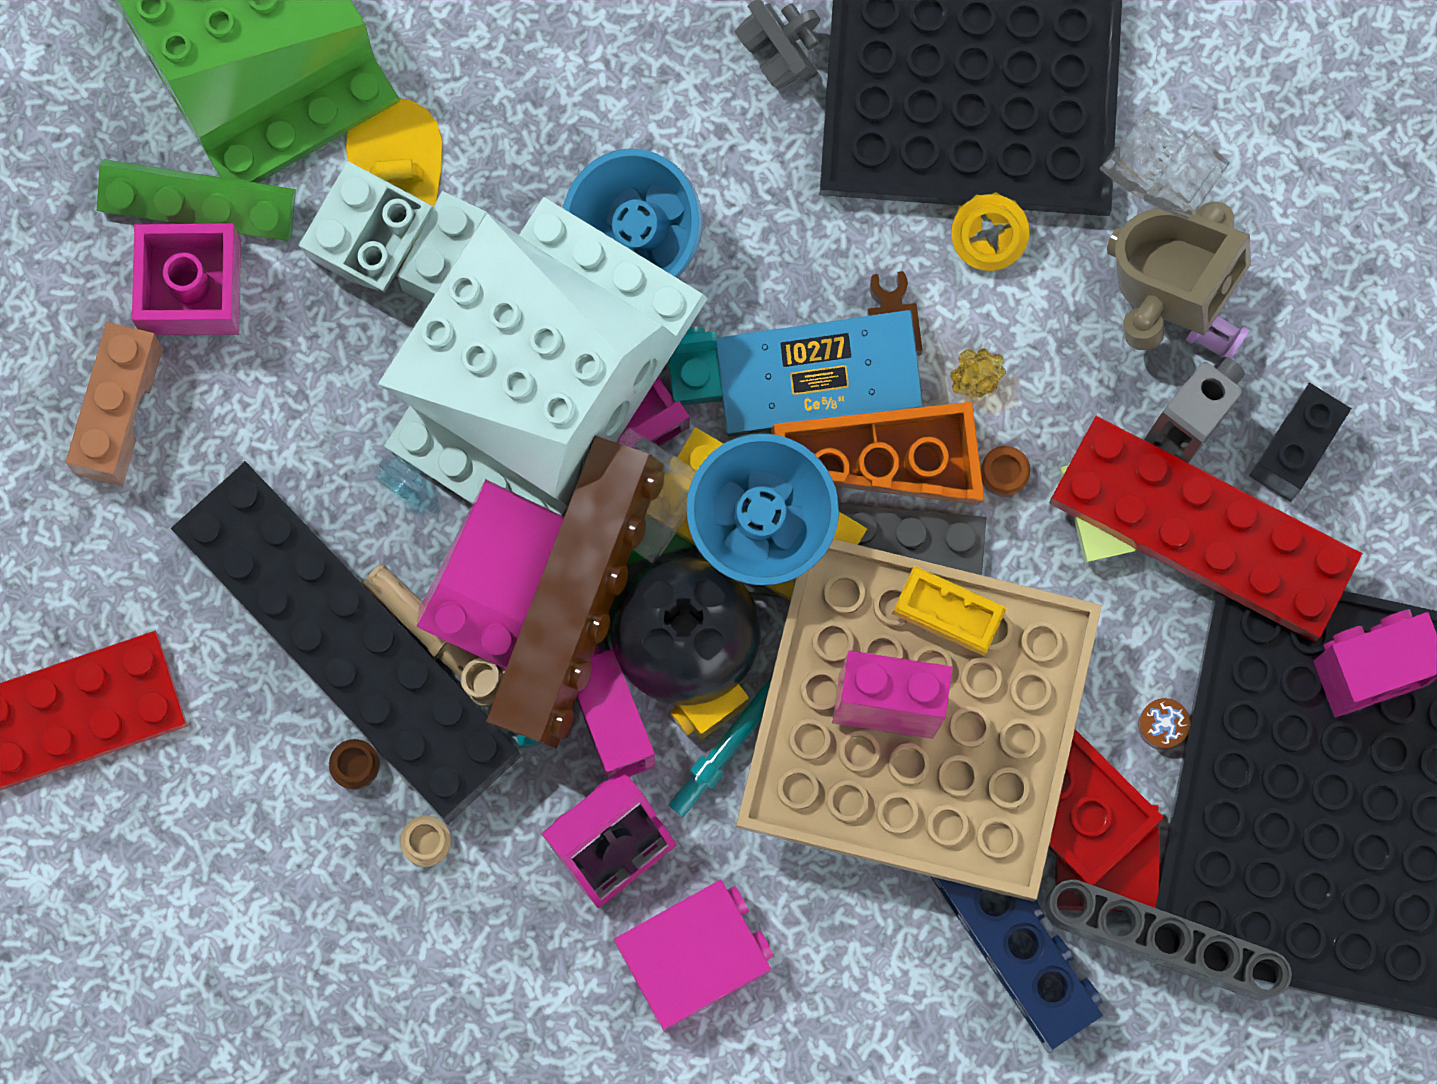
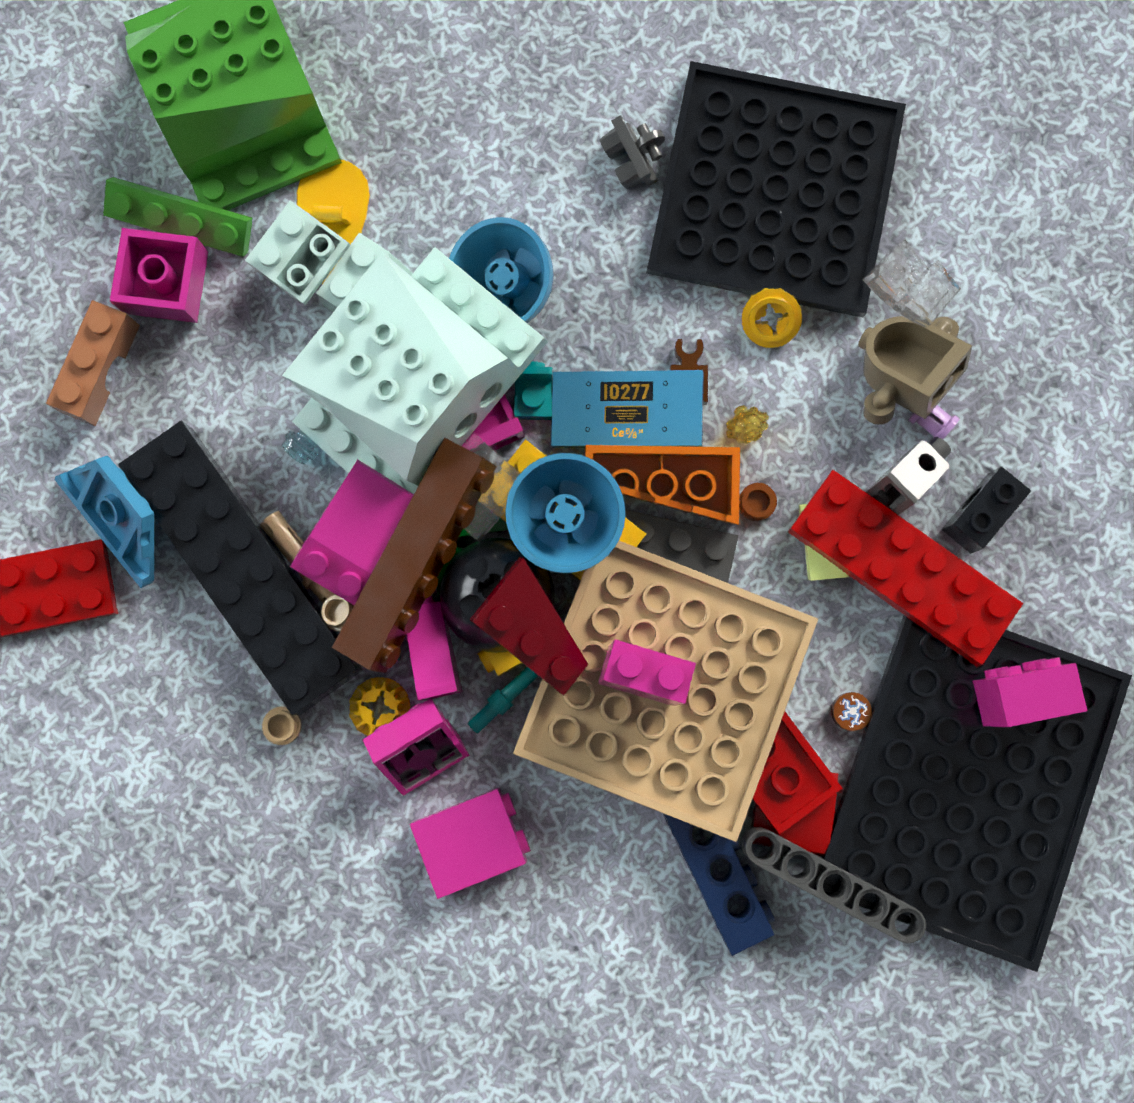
camera: 10 degrees right, 5 degrees up
(172, 592) = (115, 514): none -> dark azure wing
(354, 764) = (235, 661): reddish brown plate -> none
(534, 782) = (368, 692): none -> yellow gear
(738, 661) = (530, 629): none -> dark red wing
(949, 610) = (700, 609): yellow plate -> none

